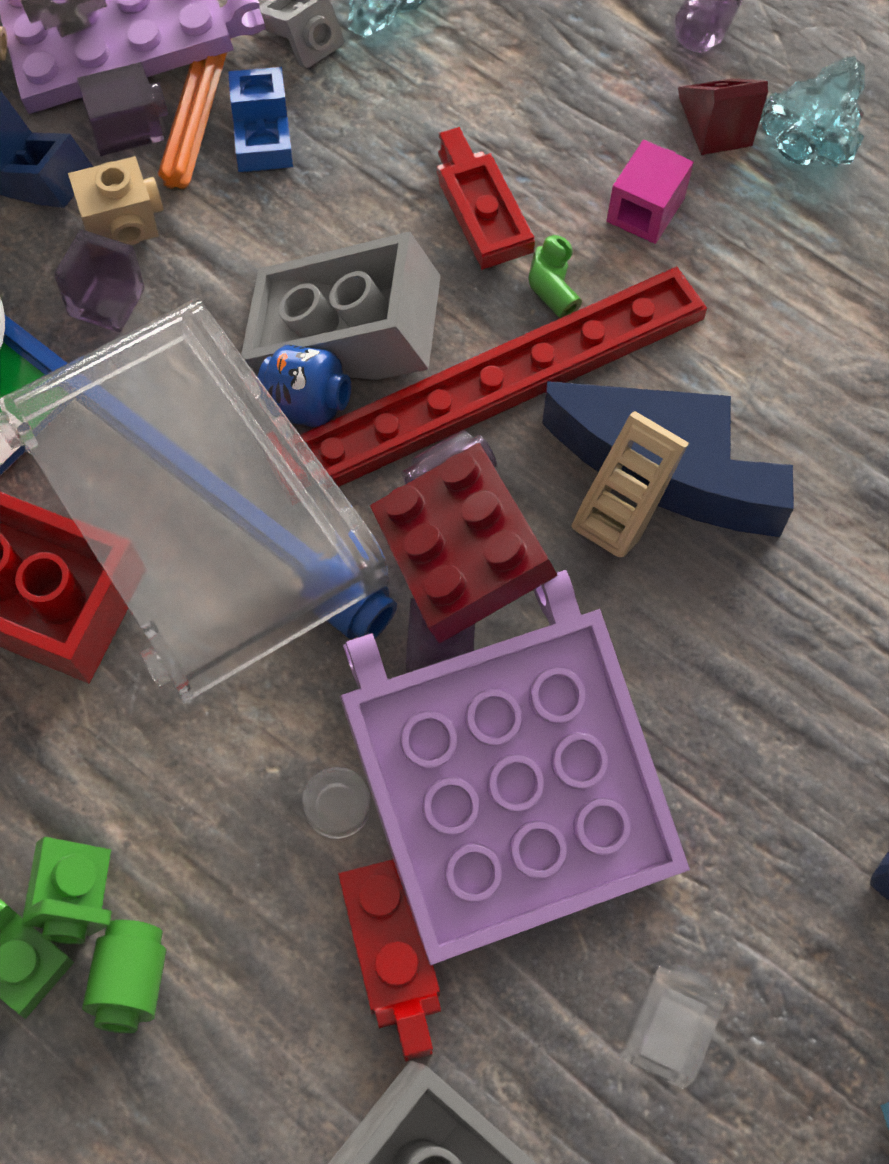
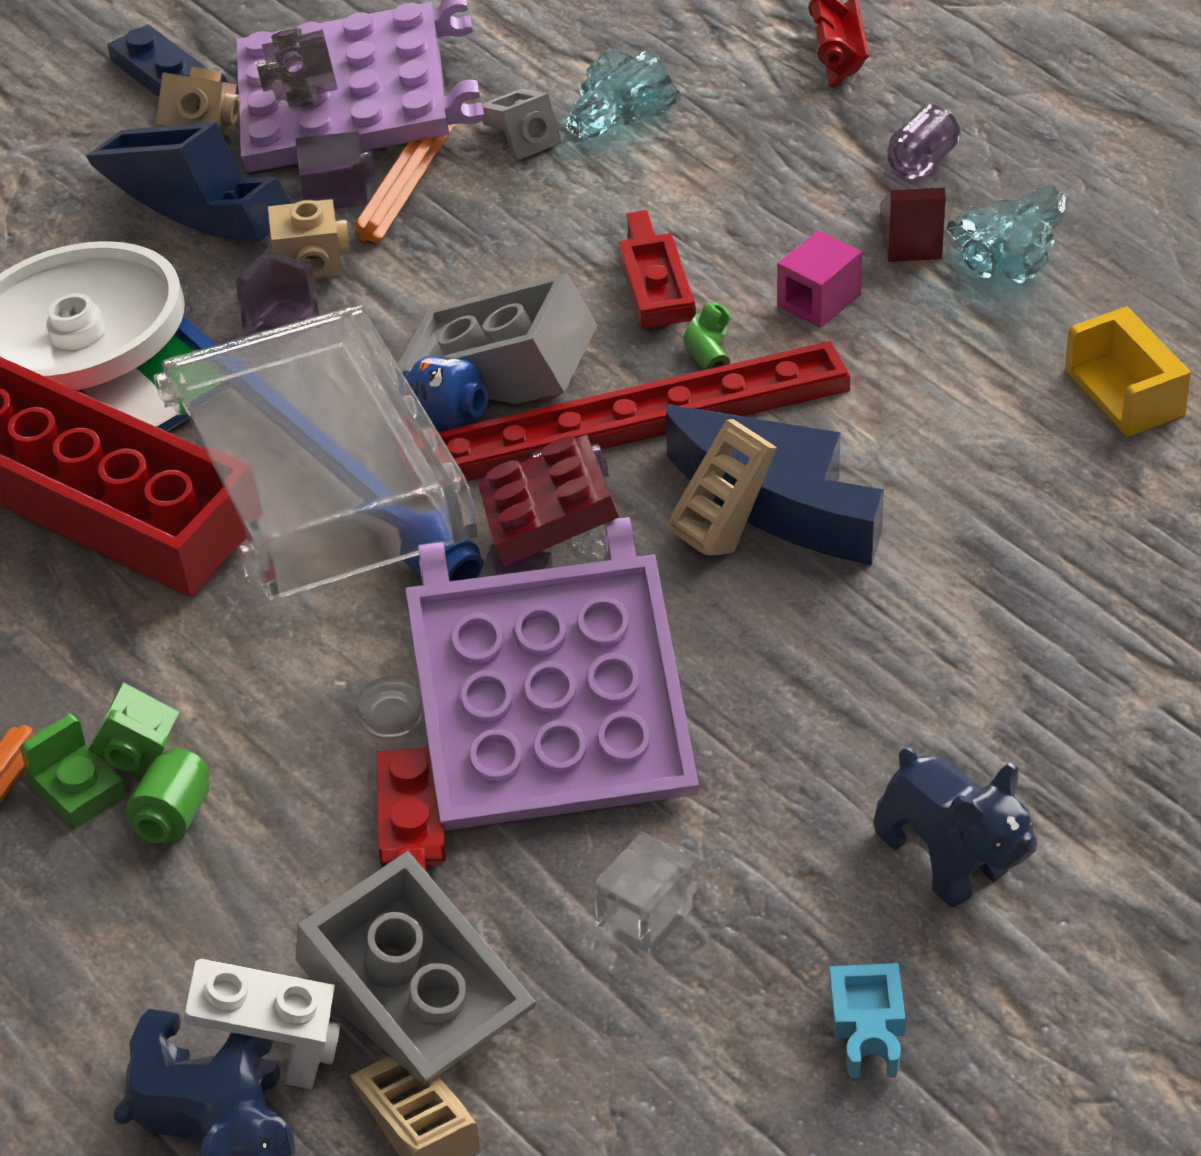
camera: 15 degrees right, 20 degrees down
(260, 119) = (461, 193): blue slope -> none

